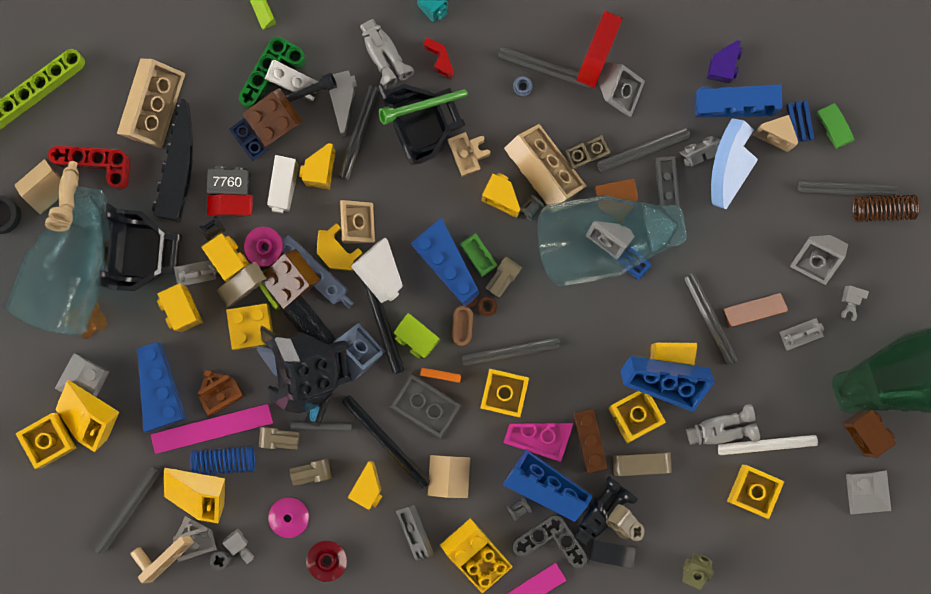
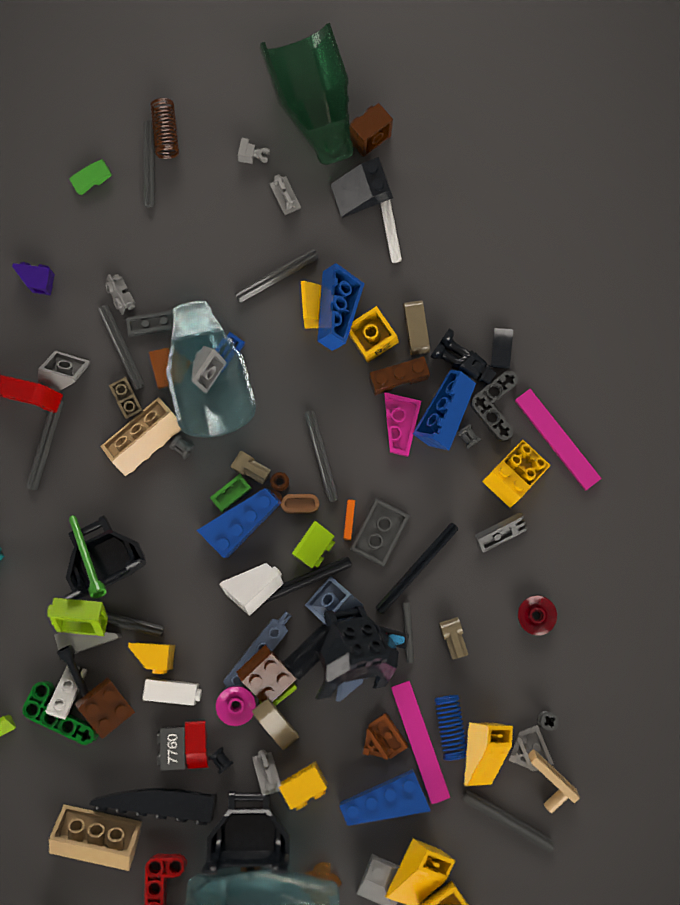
camera: 90 degrees left, 5 degrees down
(225, 257) = (249, 743): yellow brick -> none
(236, 543) = (529, 705): light grey piece -> none
(245, 325) = (316, 715): yellow brick -> none
(248, 139) = (128, 731): dark blue slope -> none
(274, 438) = (424, 679): dark tan piece -> none
(298, 513) = (489, 653): dark pink dish -> none
(333, 253) = (238, 635): yellow piece -> none
(357, 222) = (205, 613): tan slope -> none
(362, 95) = (78, 616): none -> lime window
(367, 487) = (465, 581): yellow slope -> none
(377, 44) = (26, 606): light grey piece -> none
(443, 63) = (45, 541): red slope -> none
(449, 476) = (445, 505): tan slope -> none
(467, 153) = (131, 512): tan plate -> none
(501, 195) = (171, 473): yellow slope -> none
(504, 393) = (361, 457): yellow brick -> none
(522, 80) = (58, 464): sand blue plate -> none
(625, 524) = (473, 337): dark tan piece -> none
(697, 571) = (509, 271): olive brick -> none
(712, 430) = (381, 266): light grey piece -> none
(731, 163) = (129, 264): light blue slope -> none
(738, 101) = (71, 261): blue wedge -> none
(755, 310) = (266, 237): slope -> none
(755, 491) = (432, 224): yellow brick -> none
(778, 133) = (100, 223): tan slope -> none
(802, 418) = (361, 188): none -> black slope
(804, 104) = (73, 208): blue tile -> none
(820, 257) = (214, 181): light grey slope -> none
(868, 492) = (422, 131): light grey slope -> none

